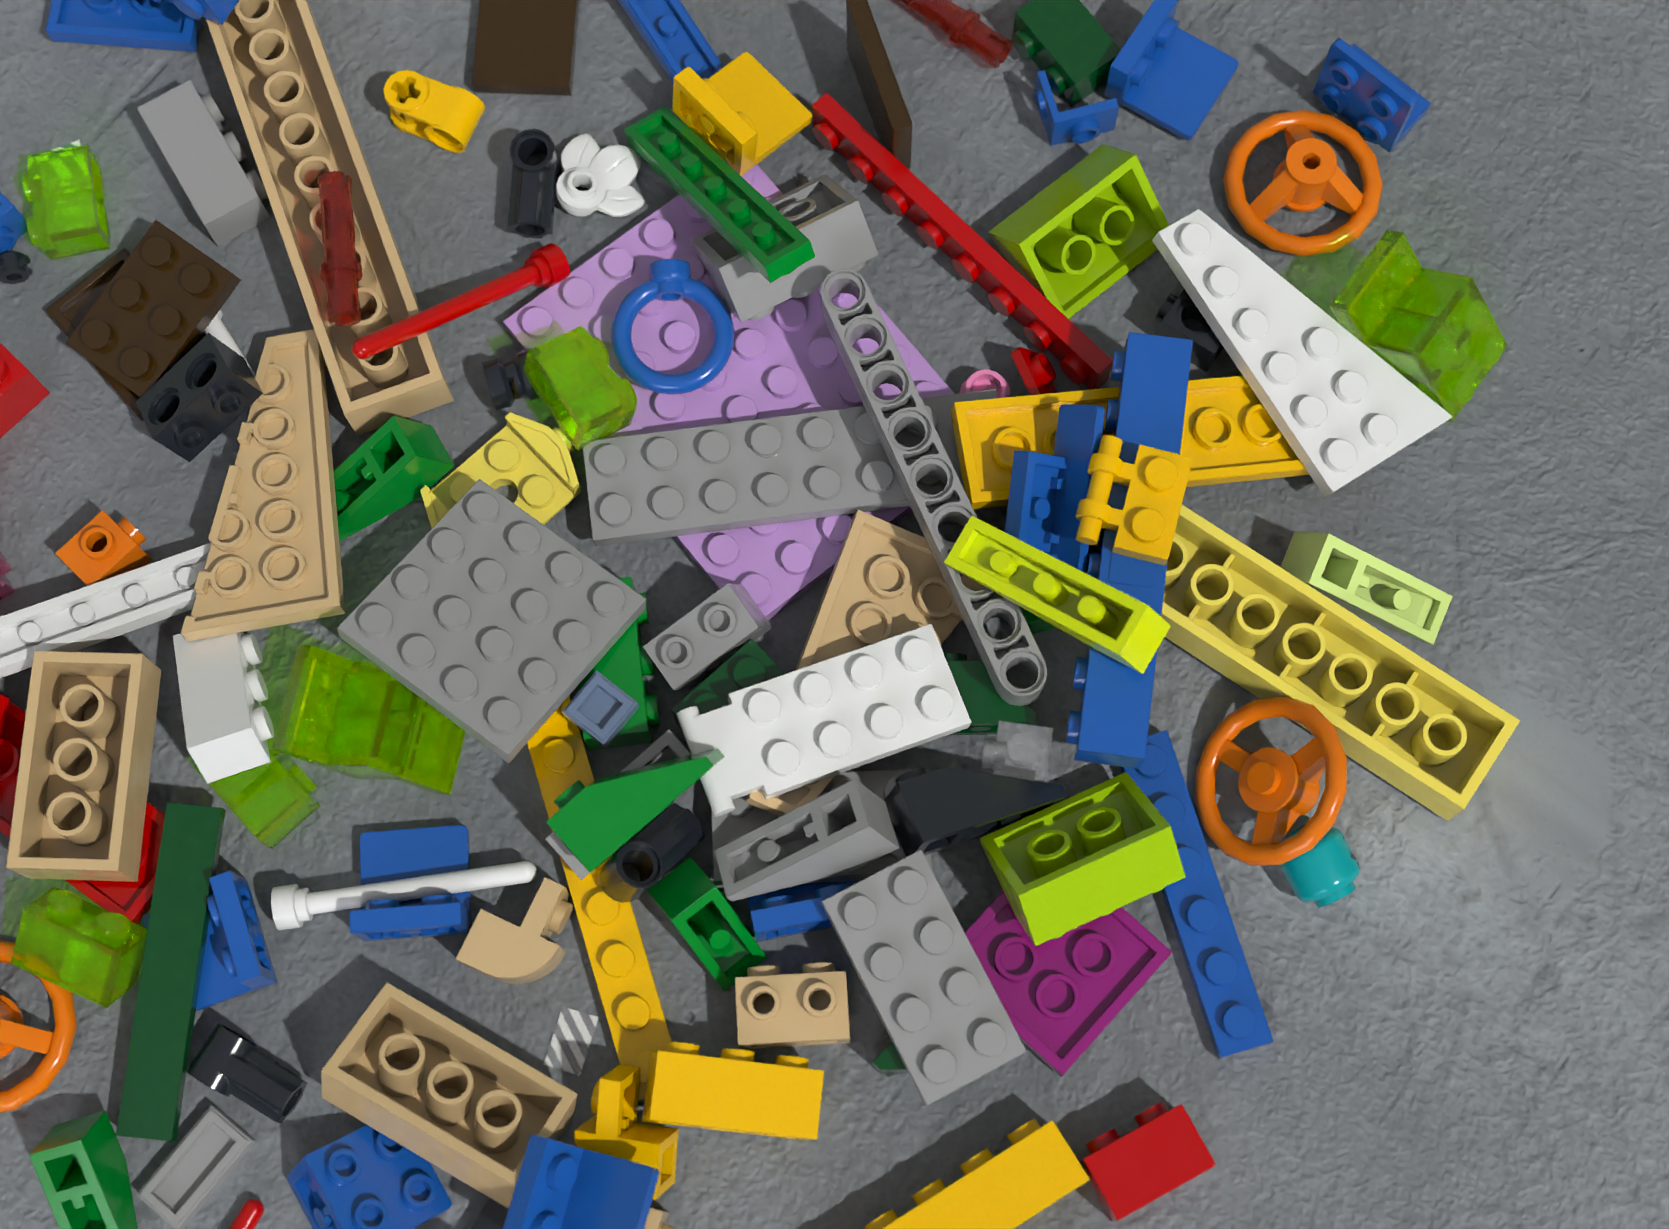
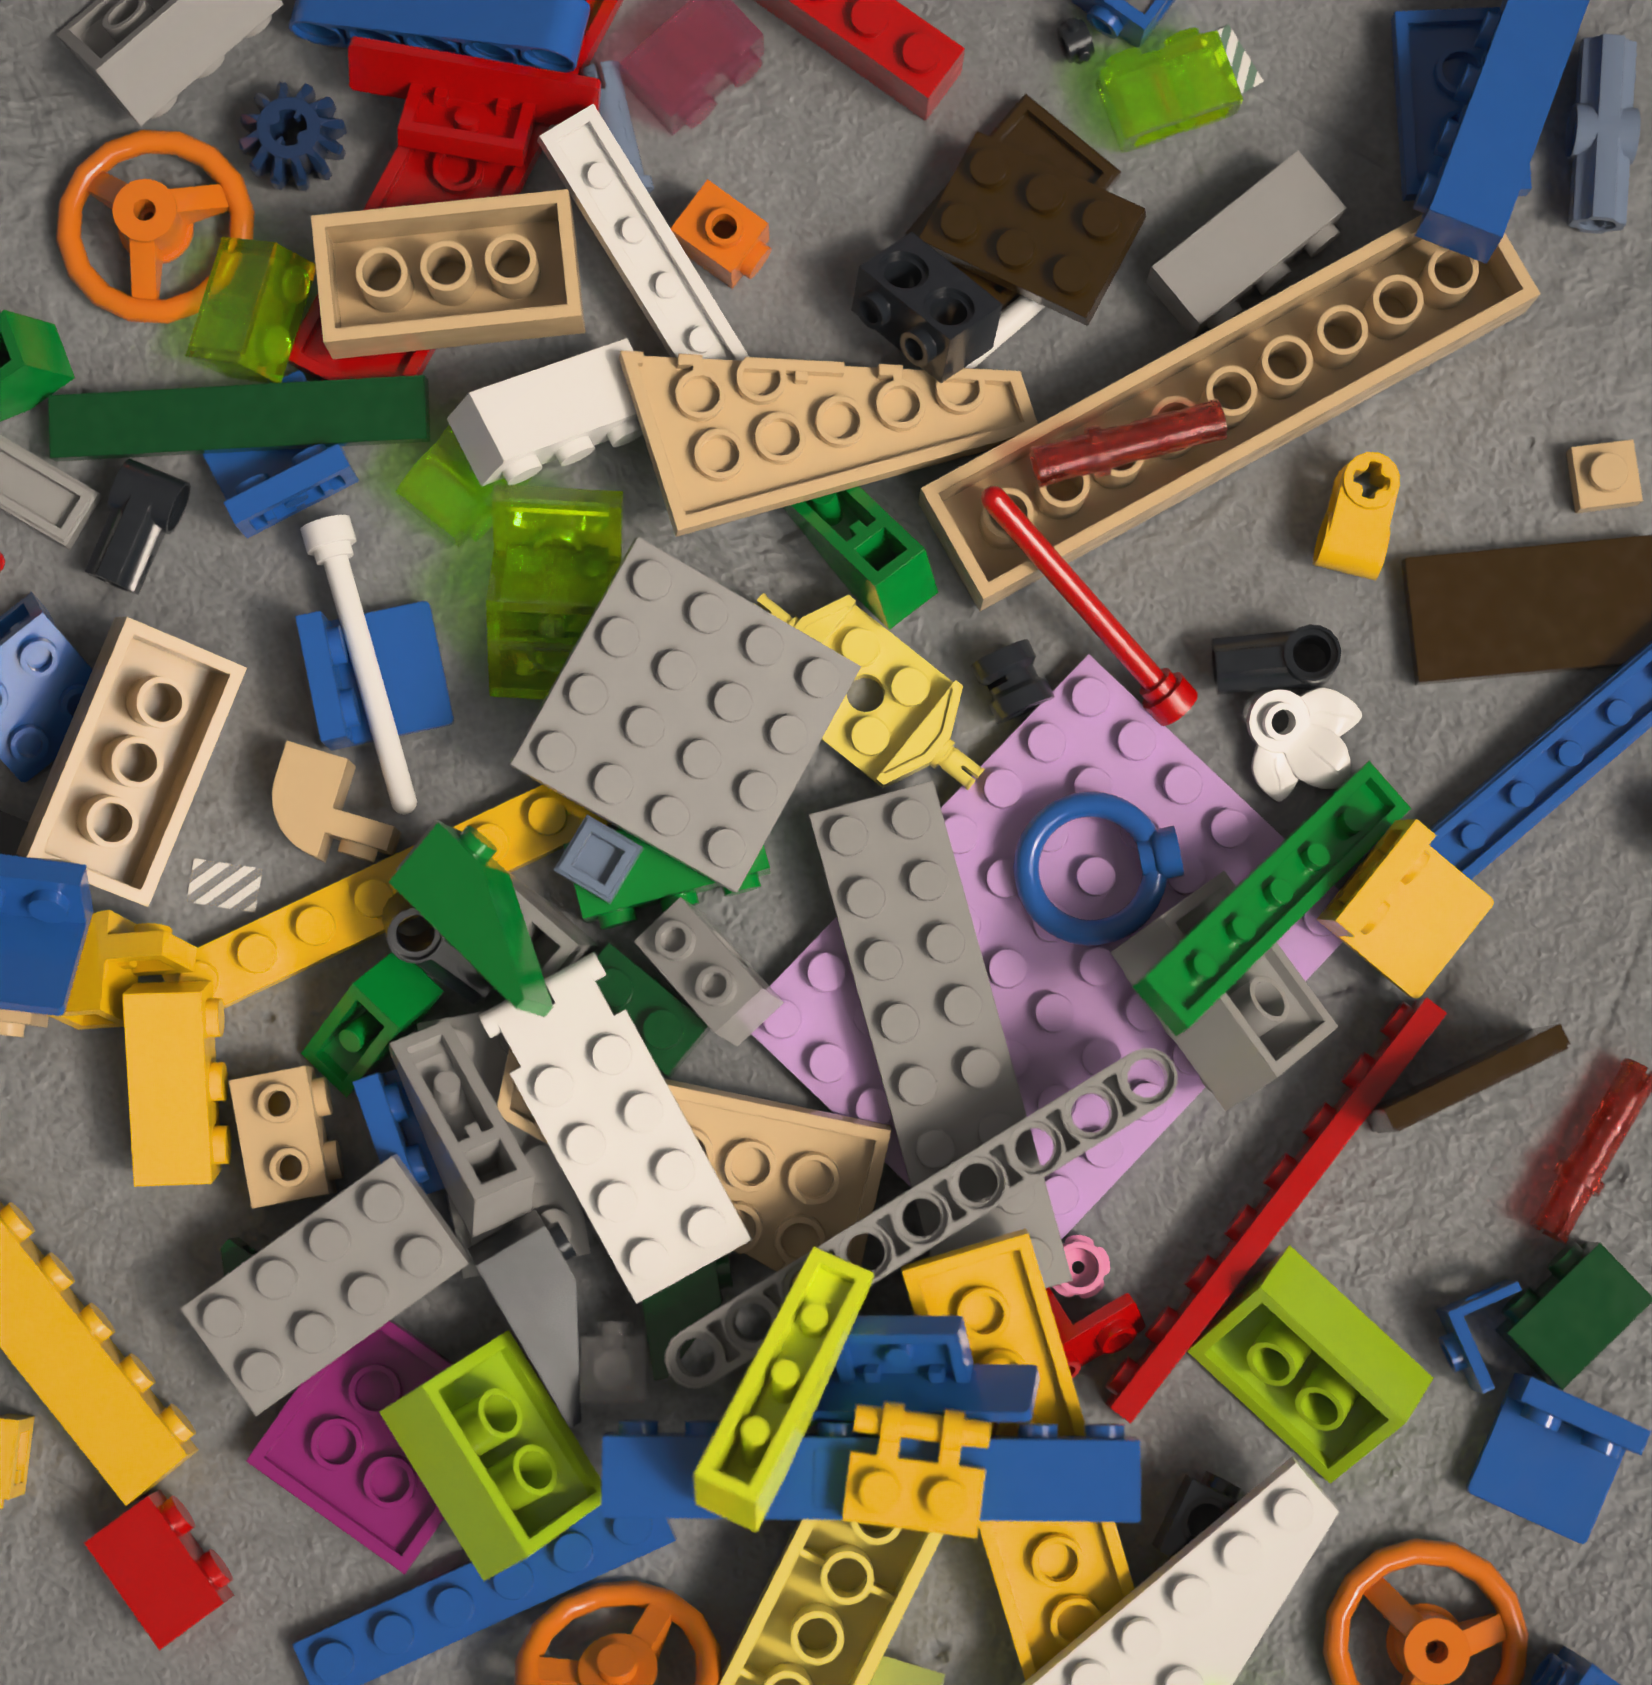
camera: 75 degrees right, 10 degrees up
(580, 387) = (999, 768): clear neon green brick -> none

